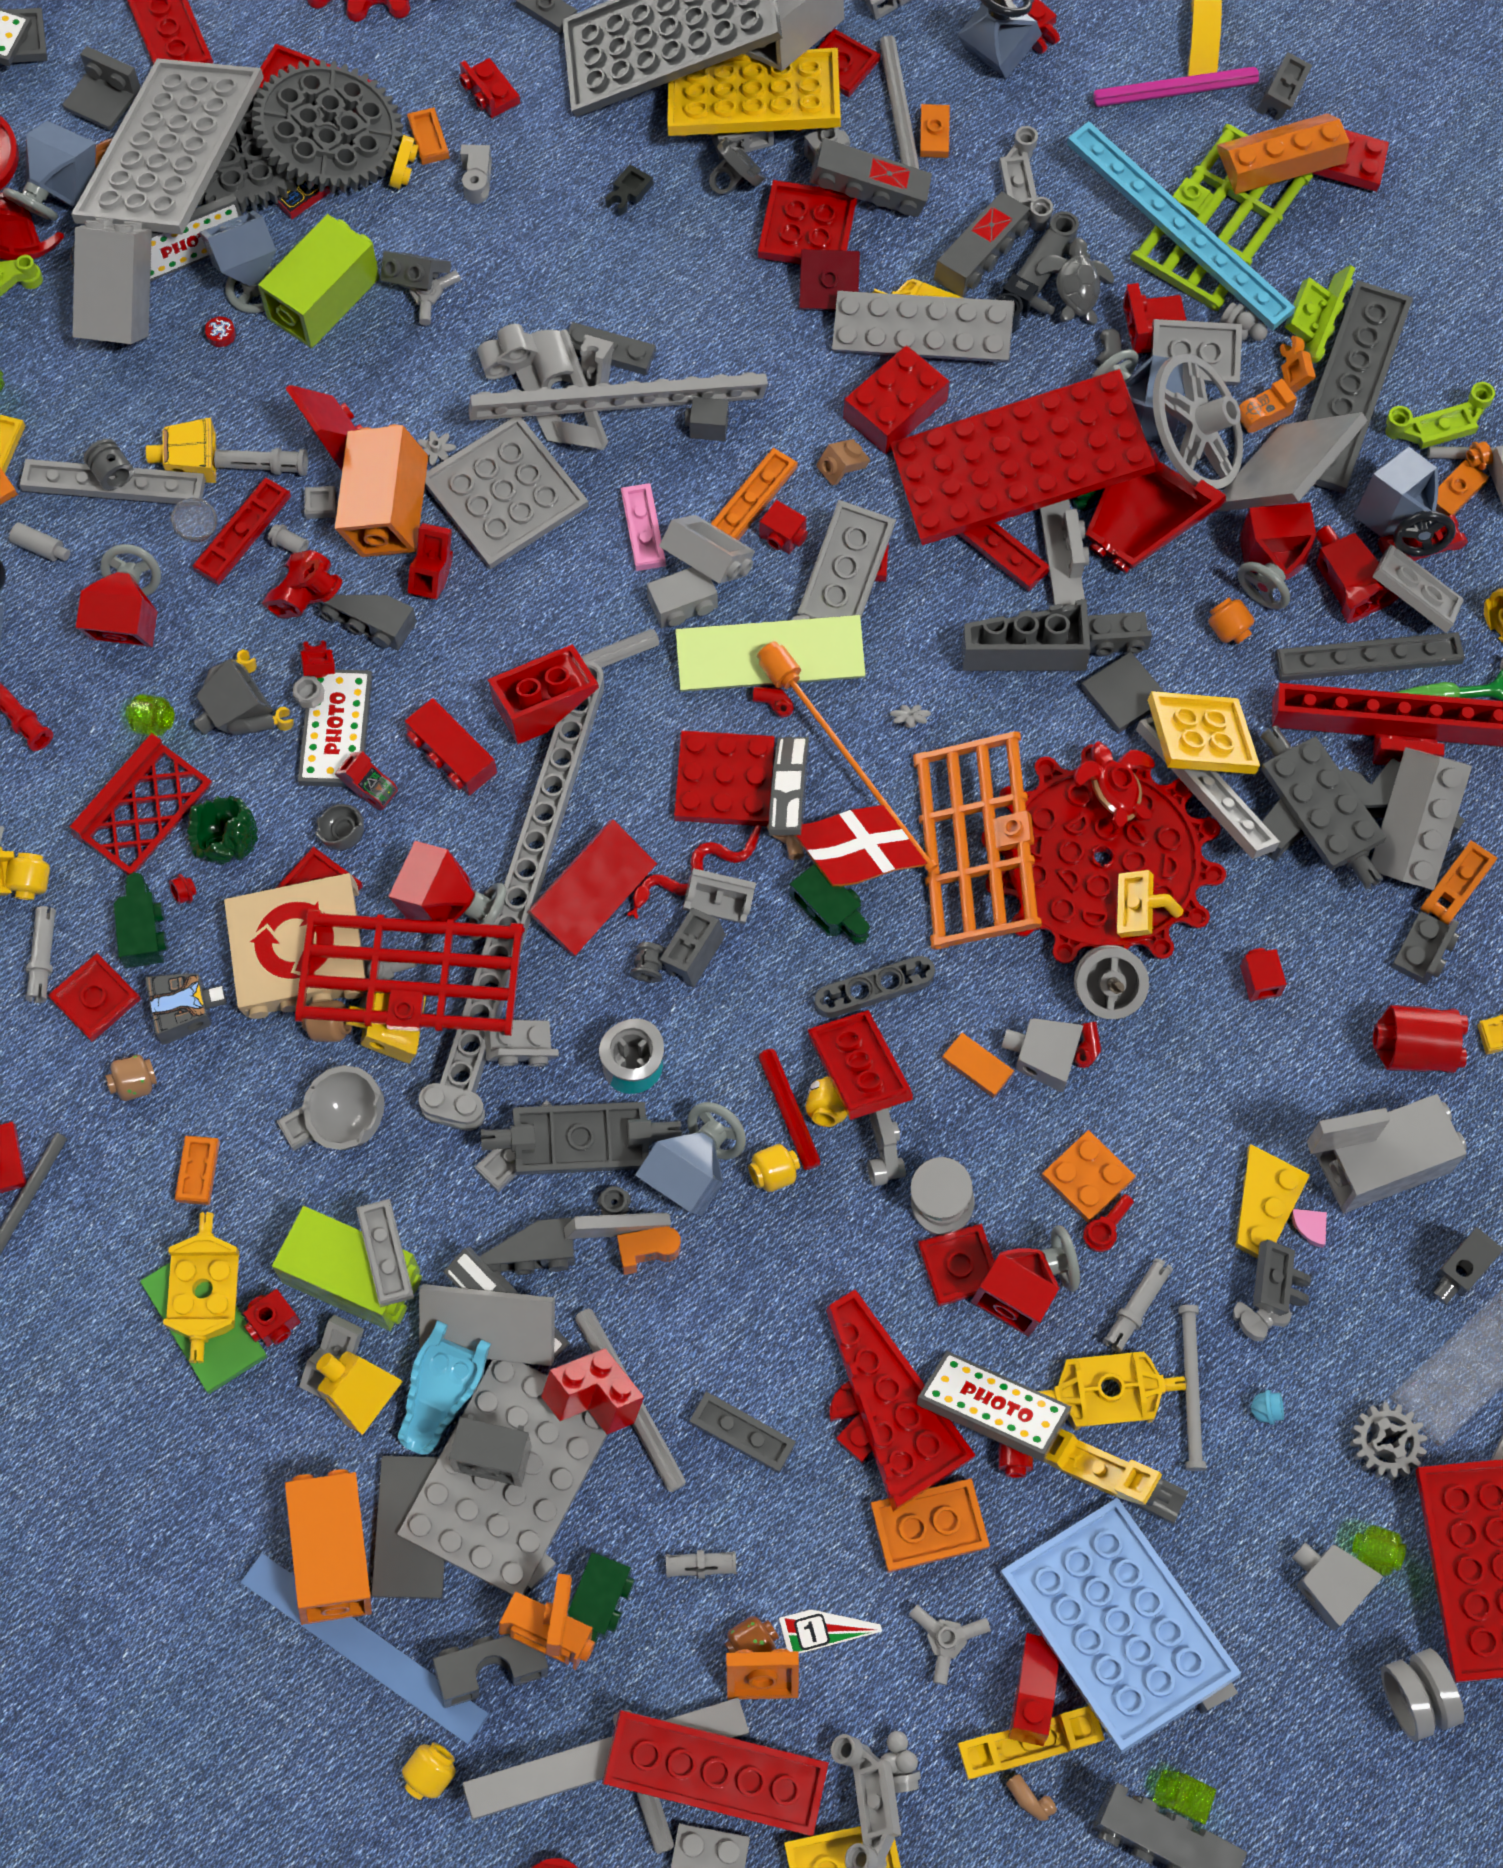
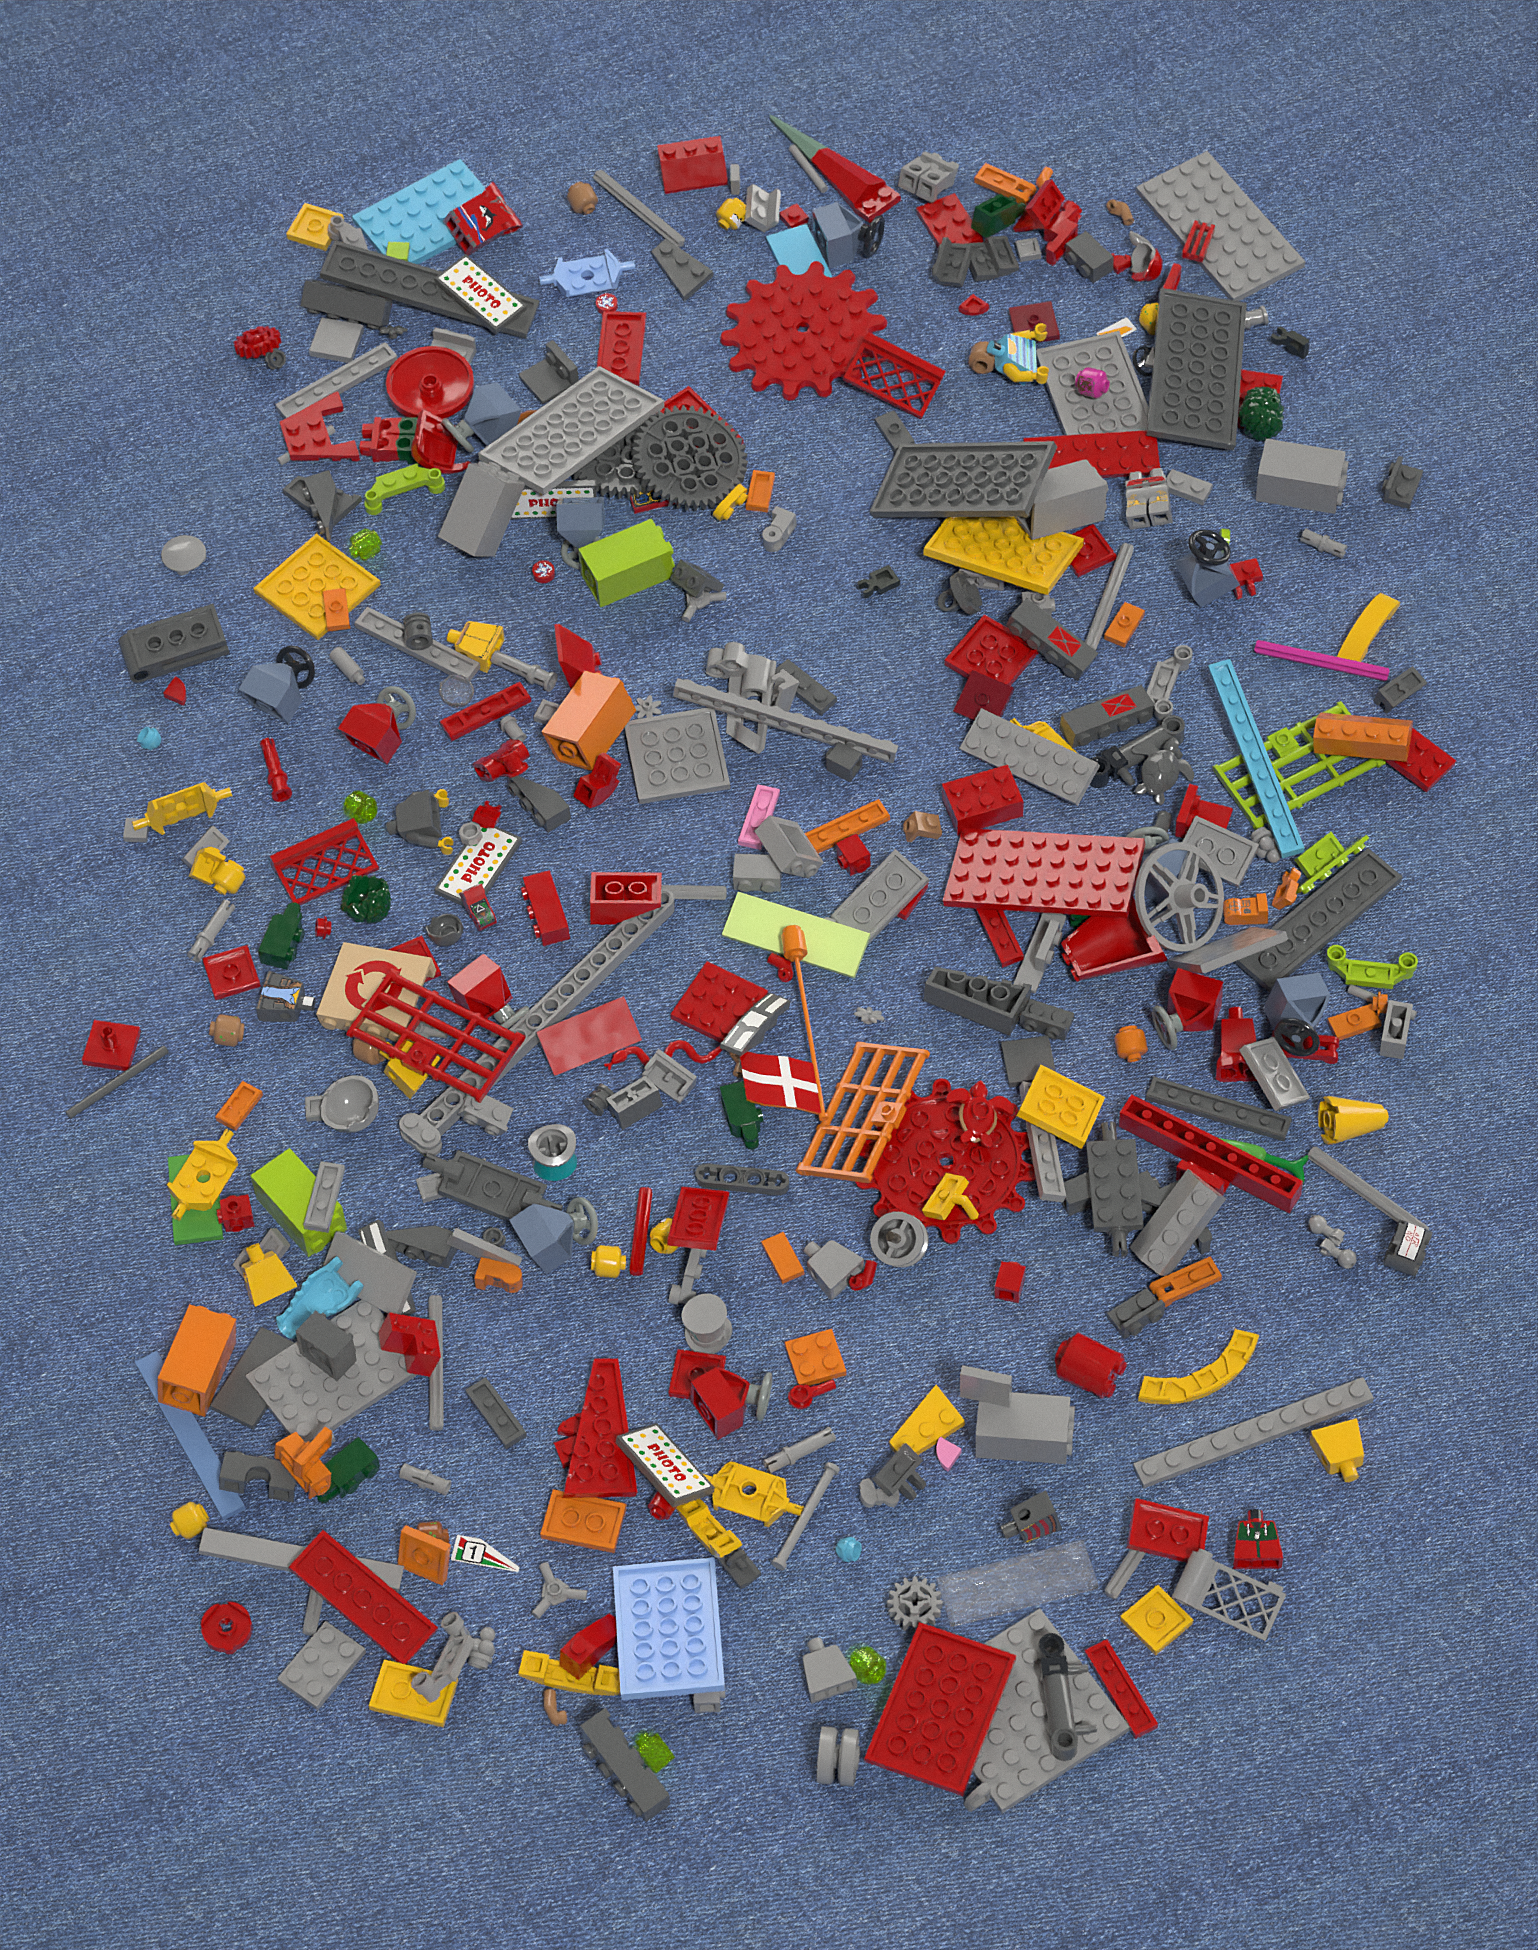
camera: 30 degrees right, 10 degrees down
(489, 87) = (822, 473): red bracket -> none

